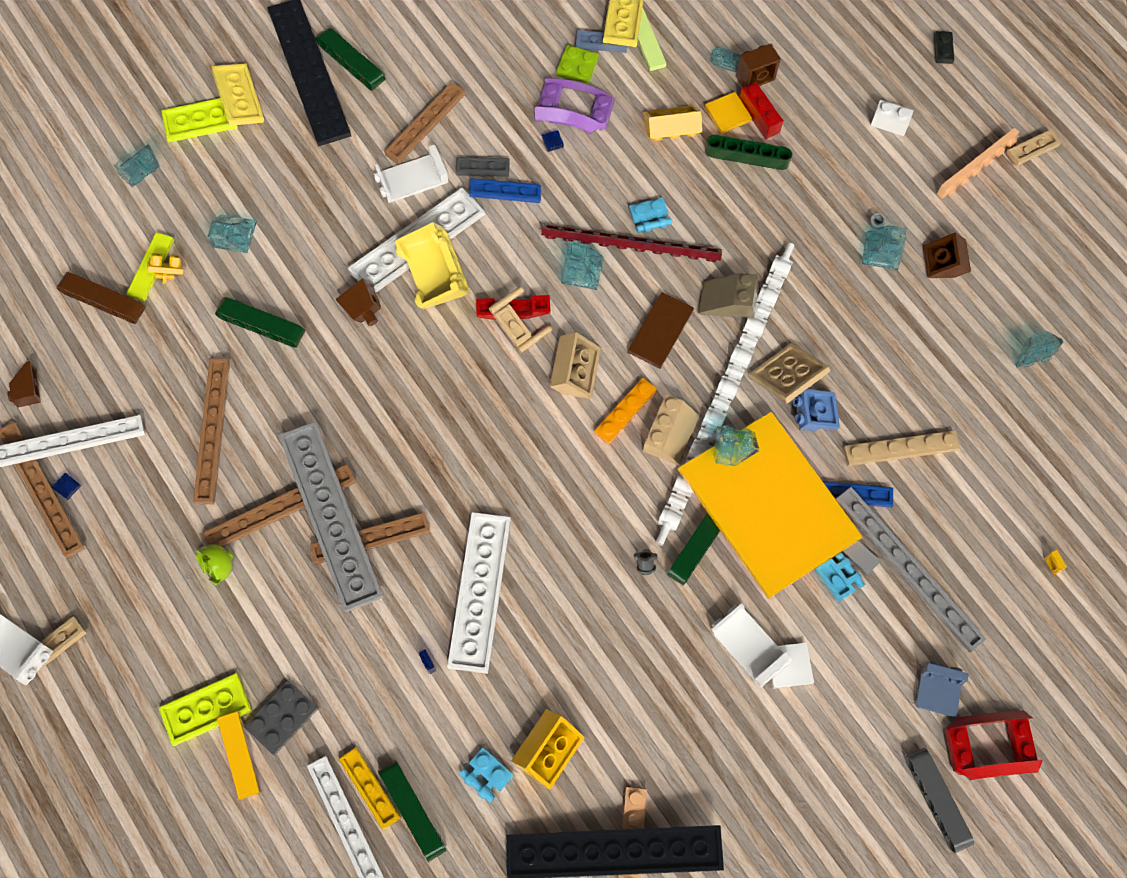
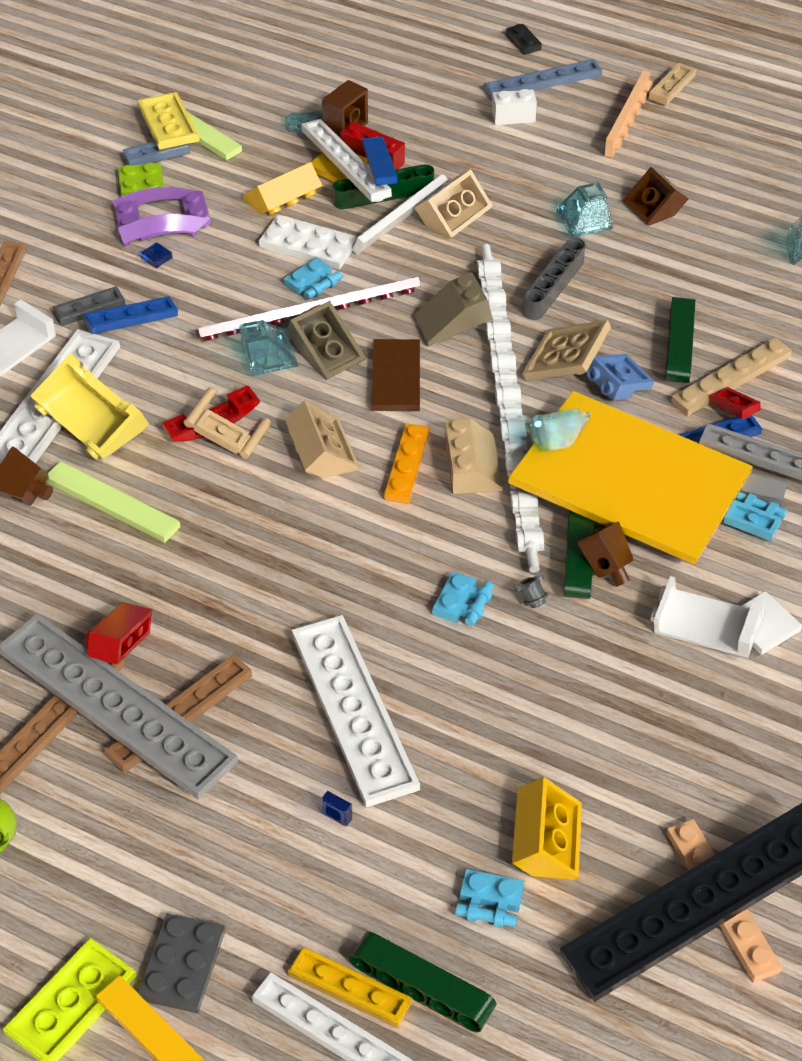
camera: 25 degrees left, 20 degrees down
(358, 462) = (119, 633): none -> red brick
(413, 347) = (113, 502): none -> yellowish green tile
(594, 538) = (455, 596): none -> medium azure plate
(626, 280) = (325, 340): none -> dark tan slope
(666, 178) = (308, 241): none -> white plate
(713, 559) = (608, 553): none -> reddish brown torso
(730, 119) = (345, 159): none -> white plate
(745, 184) = (397, 215): none -> white tile
(749, 135) = (379, 161): none -> blue tile
(790, 194) = (454, 205): none -> tan slope
(818, 304) = (554, 278): none -> dark grey beam
(880, 218) = (561, 193): light grey hinge -> none
(882, 398) = (680, 340): none -> dark green beam
(885, 475) = (735, 402): none -> red plate
(934, 96) = (546, 78): none -> sand blue tile

